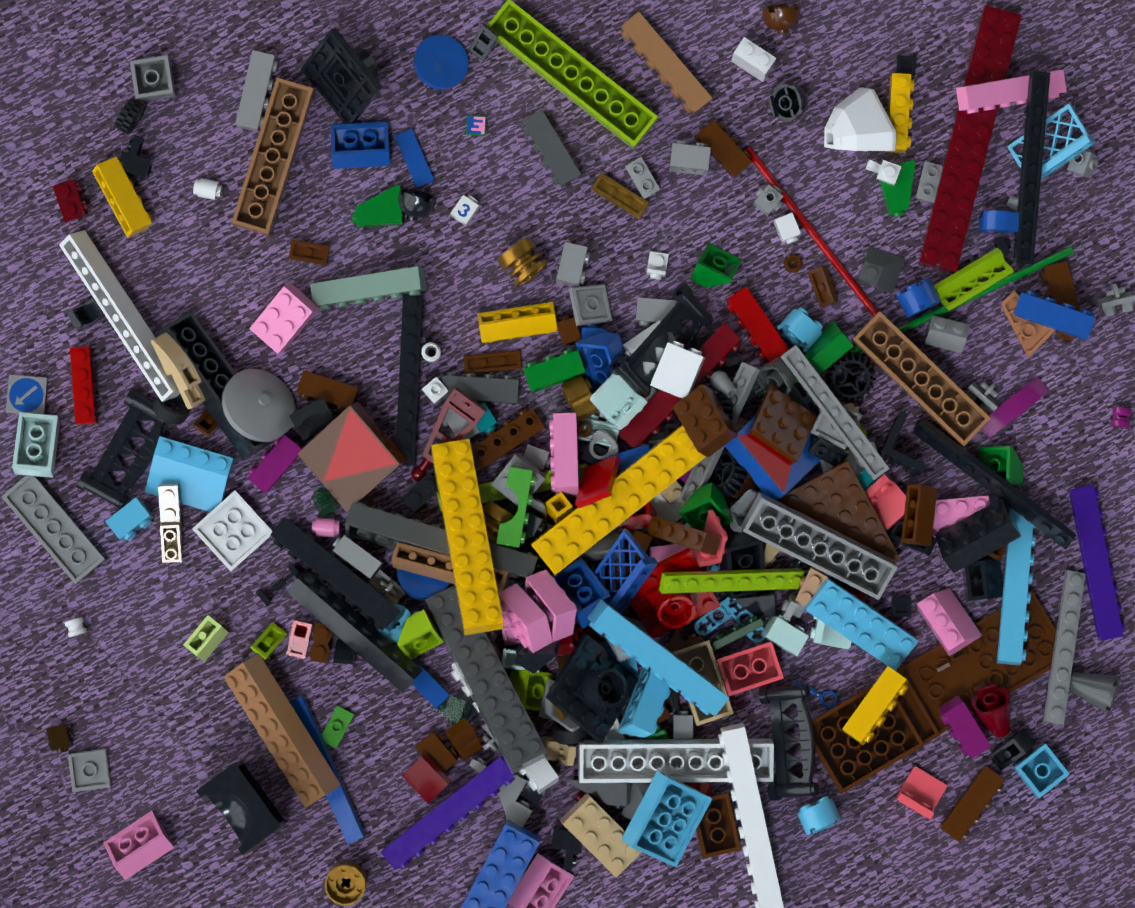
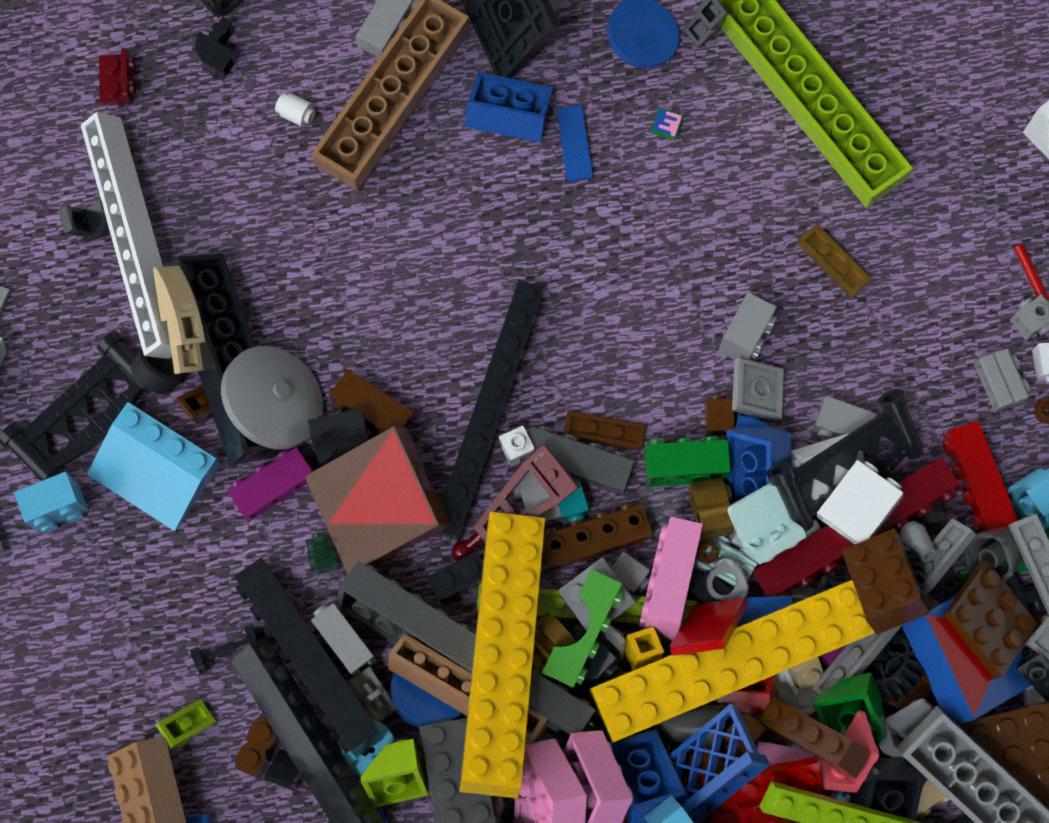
camera: 20 degrees right, 10 degrees down
(83, 385) = (51, 312): red brick -> none
(122, 197) = (182, 88): yellow brick -> none
(170, 523) = (106, 523): slope -> none
(206, 638) = (100, 695): yellowish green brick -> none
(232, 530) = (186, 557): white plate -> none
(284, 318) = (342, 294): bright pink brick -> none
(299, 638) = (230, 732): brick -> none
(309, 252) = (401, 223): reddish brown plate -> none
(325, 527) = (314, 588): bright pink brick -> none
(369, 287) = (467, 284): sand green brick -> none
(379, 211) = (511, 194): green slope -> none
(416, 203) = (560, 198): black cylinder -> none
(428, 347) = (522, 386): white brick -> none
(465, 209) = (622, 223): white brick -> none
(517, 322) = (653, 385): yellow brick -> none
(522, 261) = (681, 306): pearl gold wheel -> none
(551, 149) = (758, 177): dark grey brick -> none
(642, 178) = (871, 244): light grey hinge -> none
(657, 265) = (861, 363): white bracket -> none
(666, 63) = (937, 111): medium nougat brick -> none
(689, 158) = (941, 234): light grey brick -> none
(715, 267) = (939, 386): green slope -> none
(724, 149) = (988, 237): reddish brown brick -> none
(757, 251) = (1002, 380): none -> light grey brick

